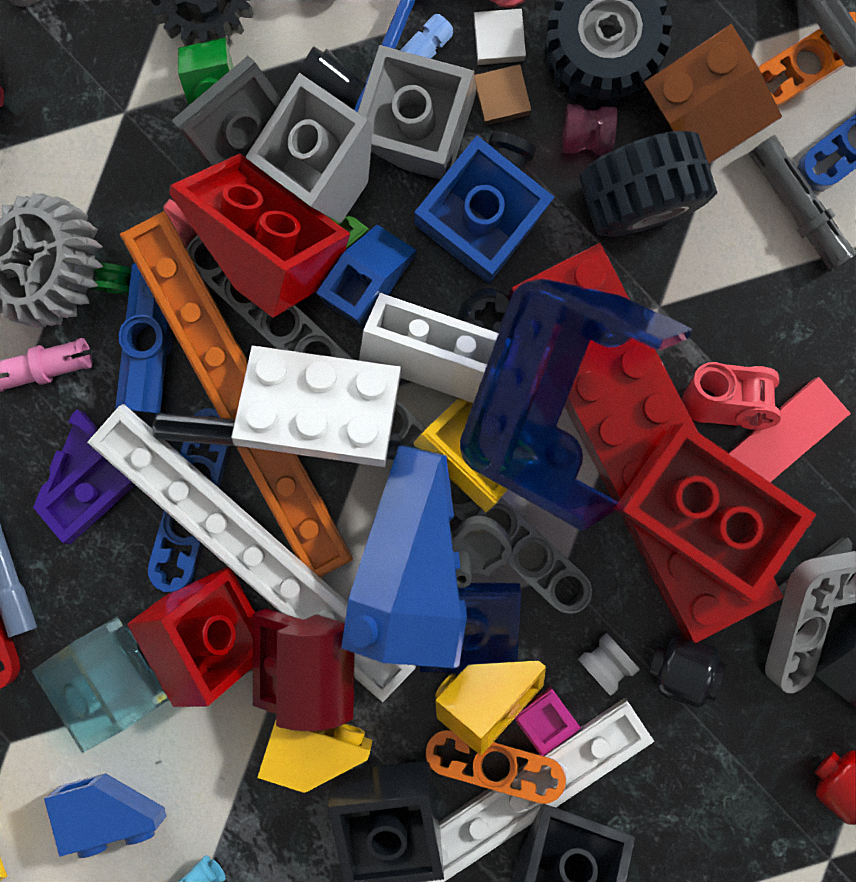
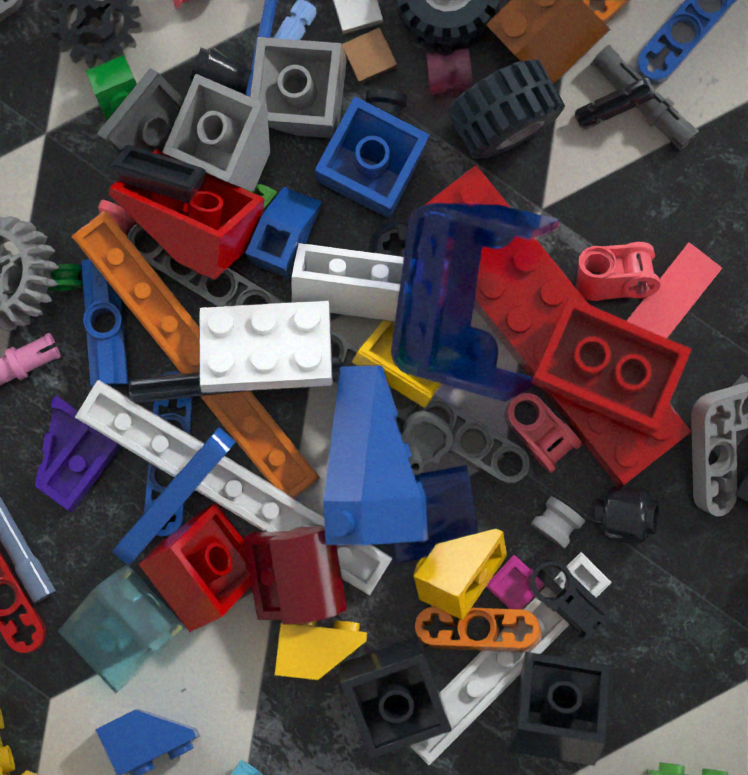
camera: 10 degrees left, 5 degrees down
(182, 555) = (173, 496): none -> blue beam
(230, 180) = (157, 173): none -> black tile
(605, 757) = (572, 602): none -> black piece
(614, 564) = (543, 432): none -> coral piece
(770, 203) = (615, 103): none -> black axle

